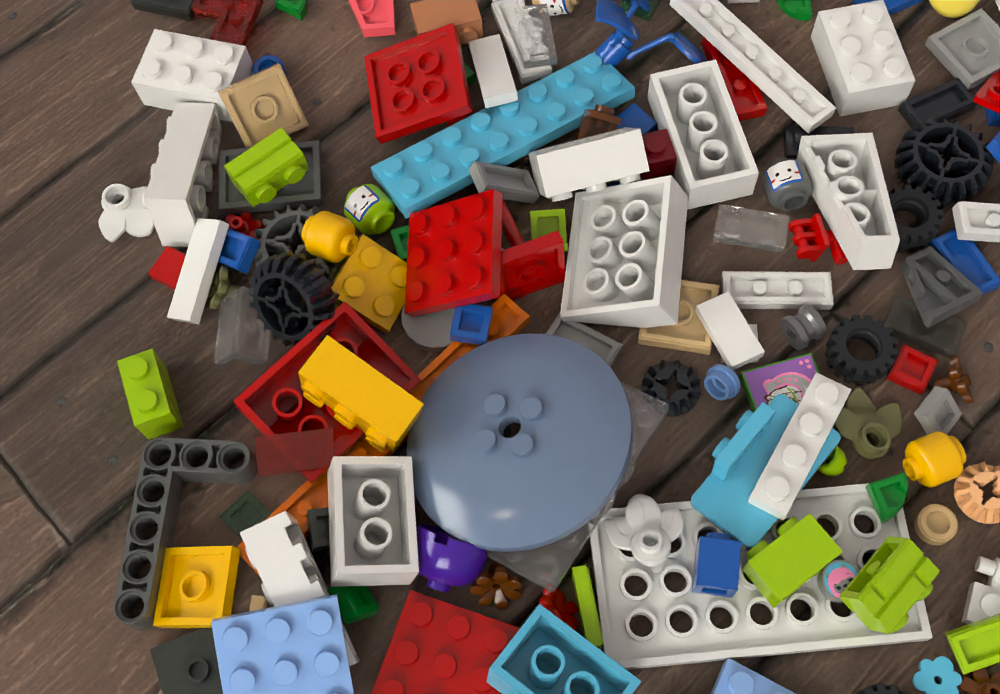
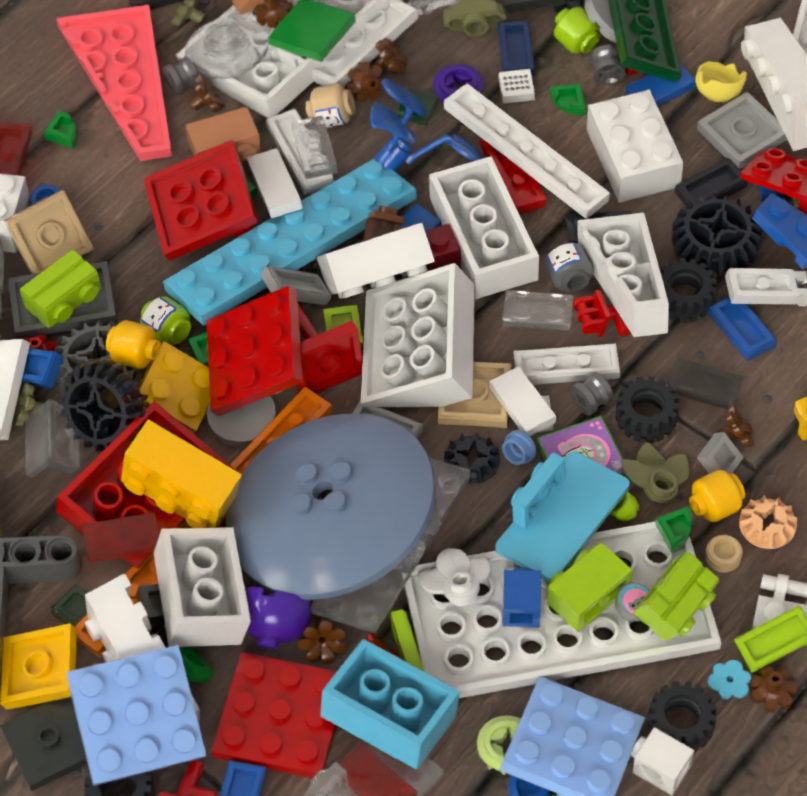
camera: 10 degrees left, 10 degrees down
(471, 324) = (276, 414): blue plate -> none
(799, 446) = (591, 491): white plate -> none
(912, 369) = (696, 423): red tile -> none
(937, 286) = (714, 346): dark grey wing -> none

